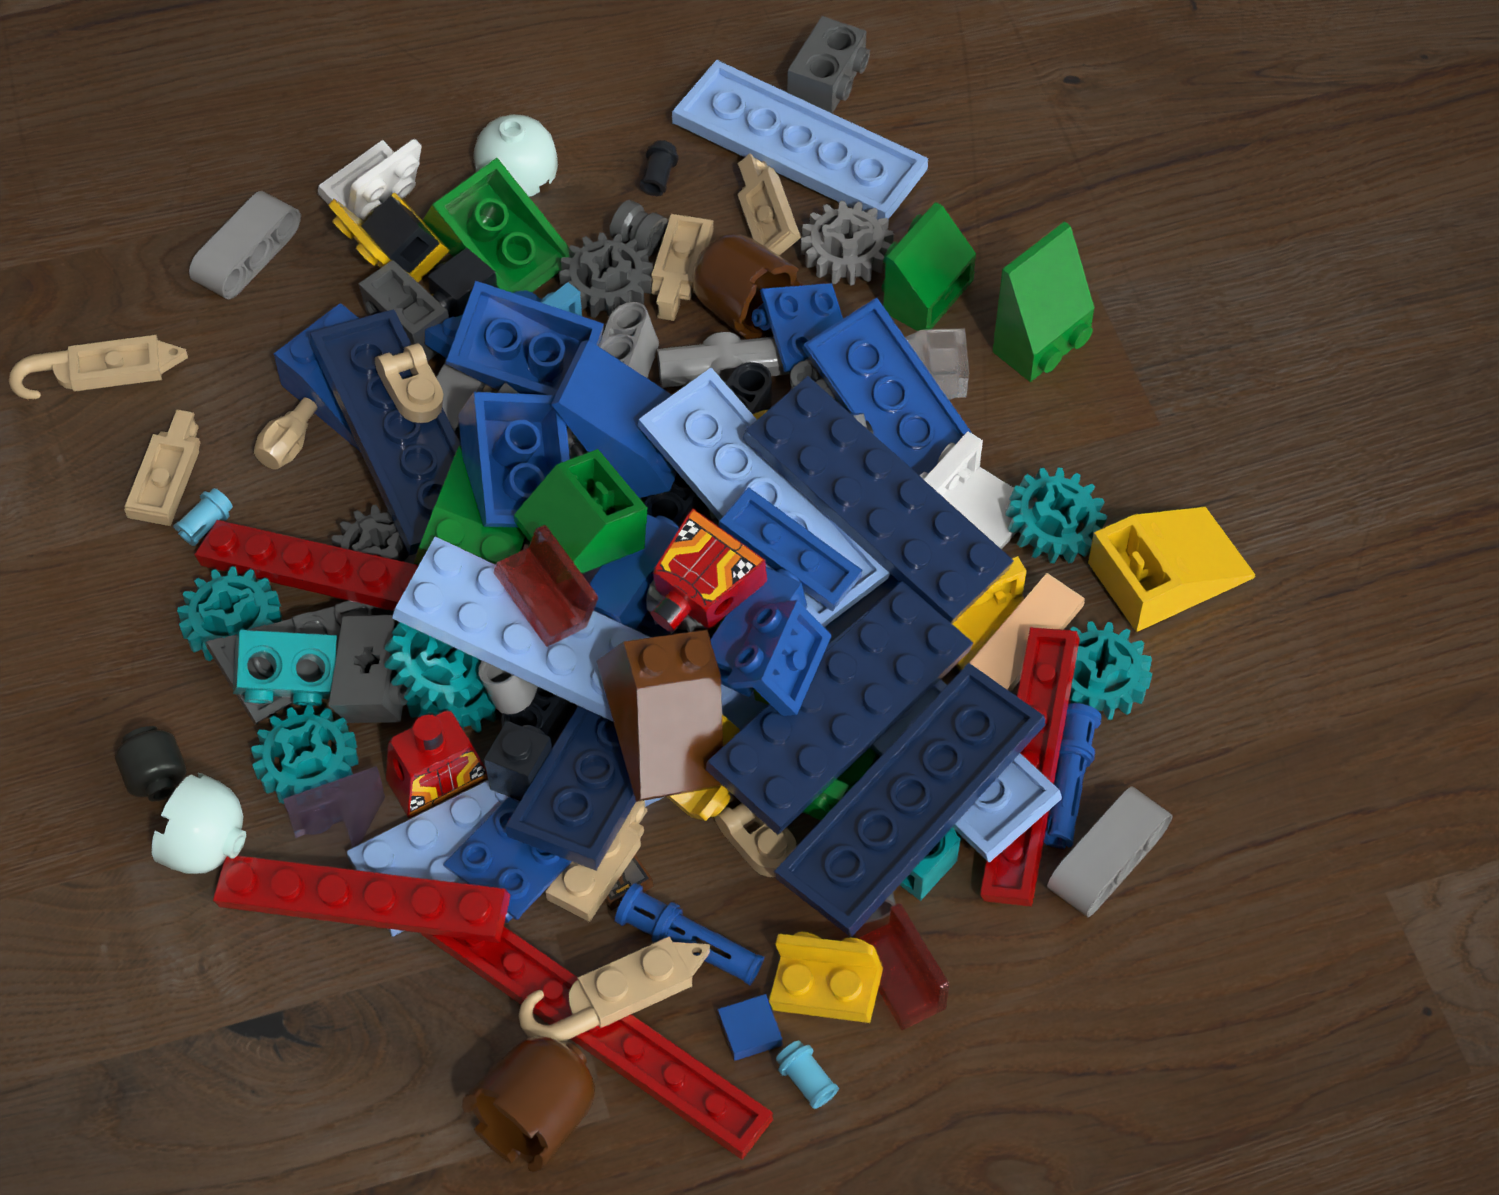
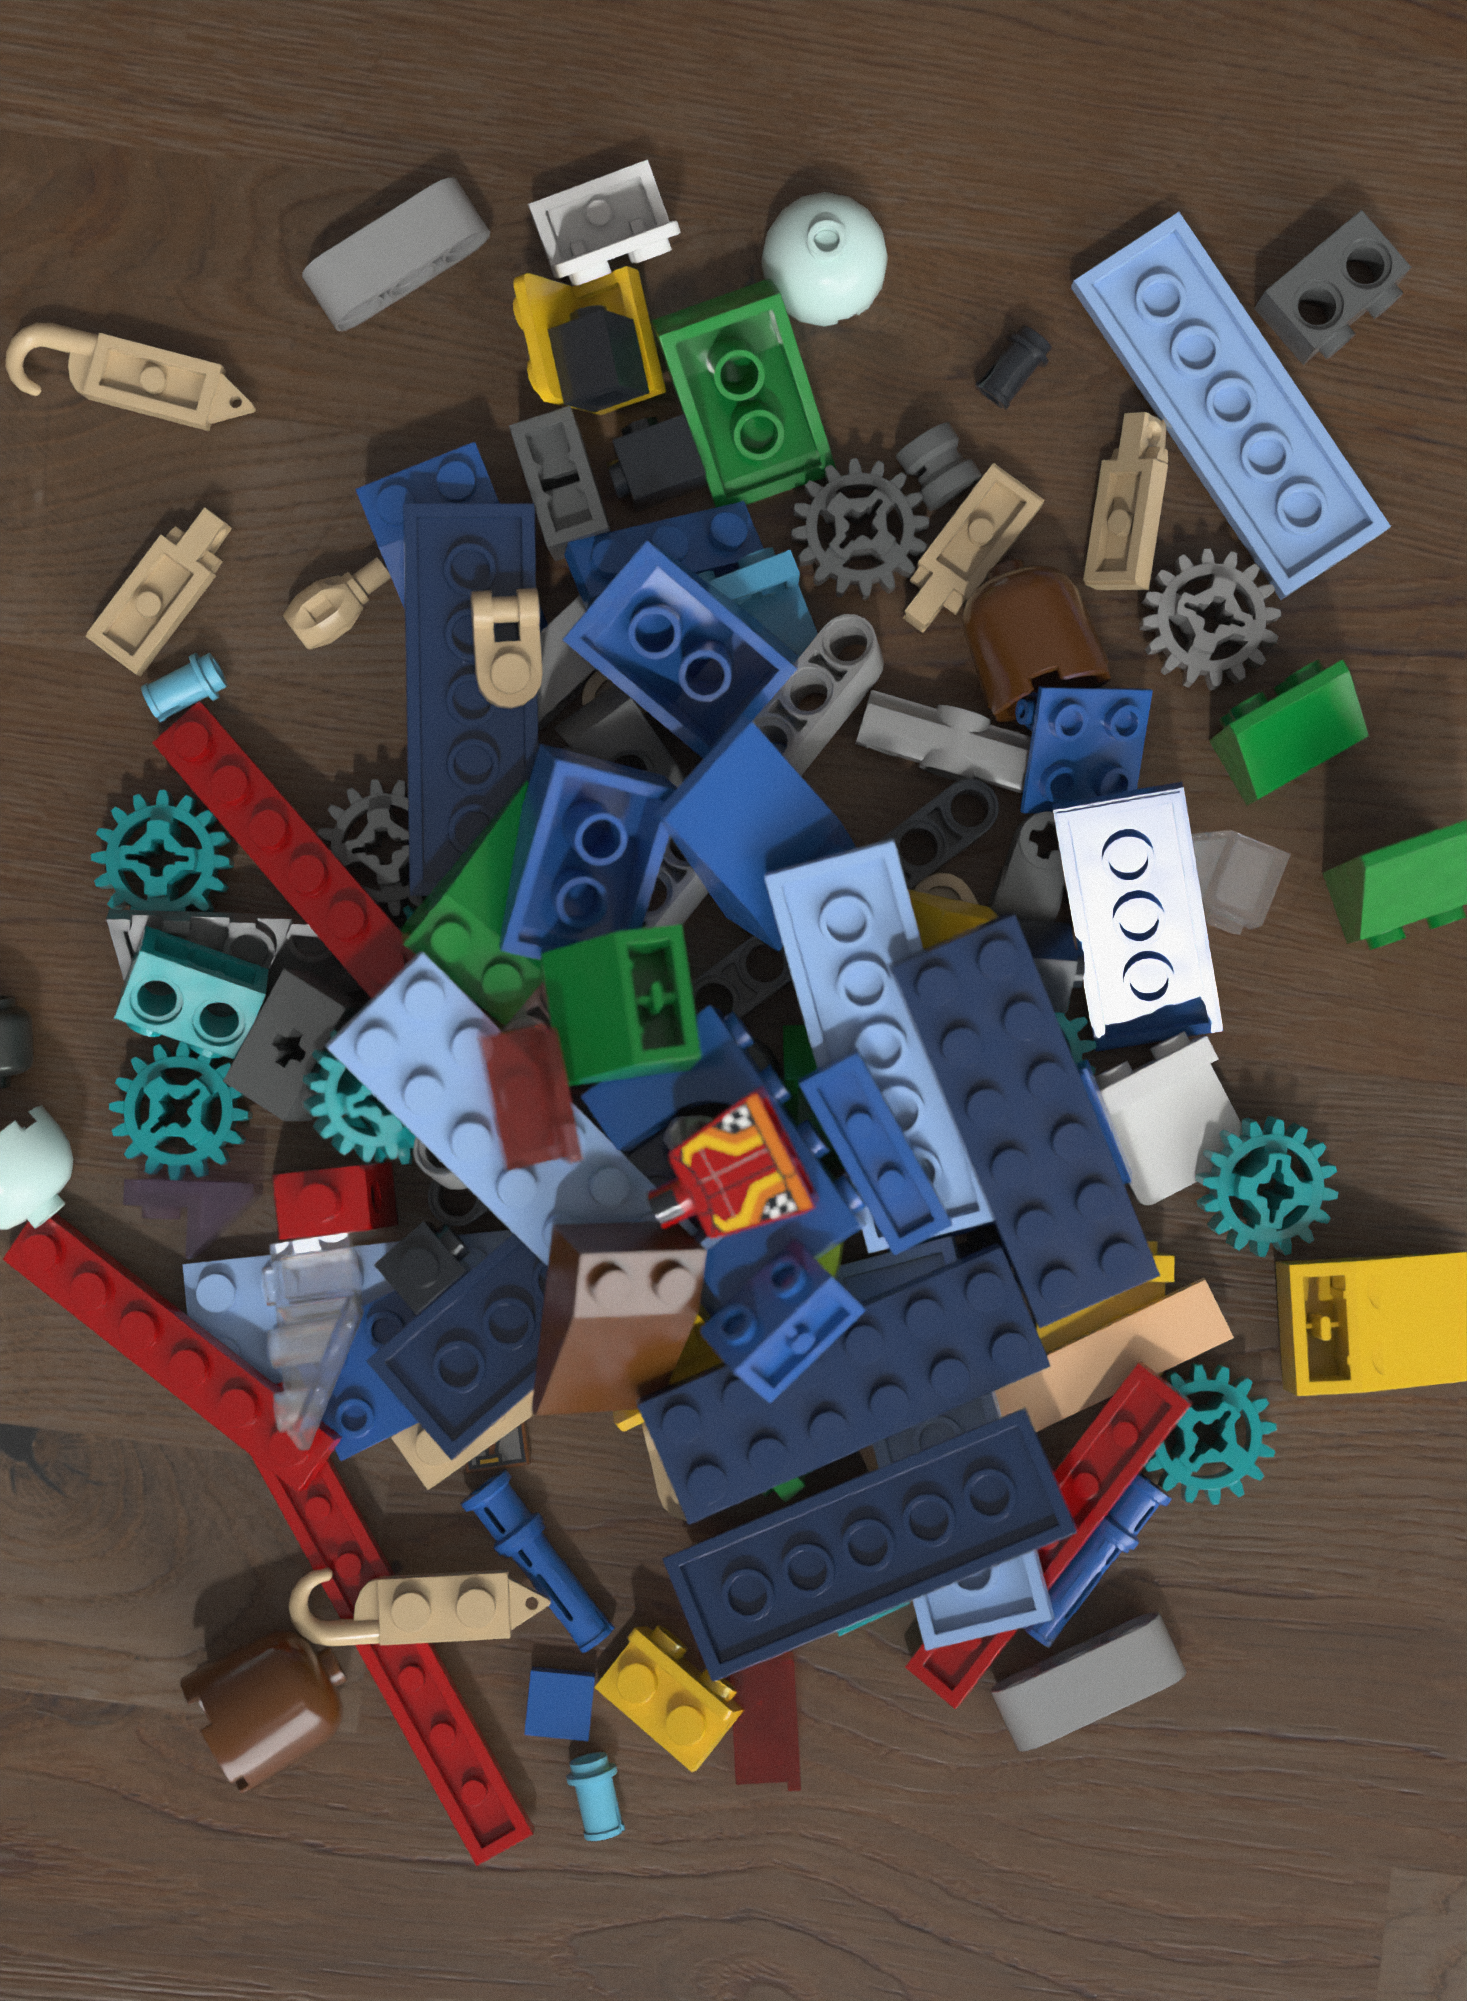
camera: 25 degrees right, 30 degrees up
(457, 820) = (318, 1315): none -> clear slope

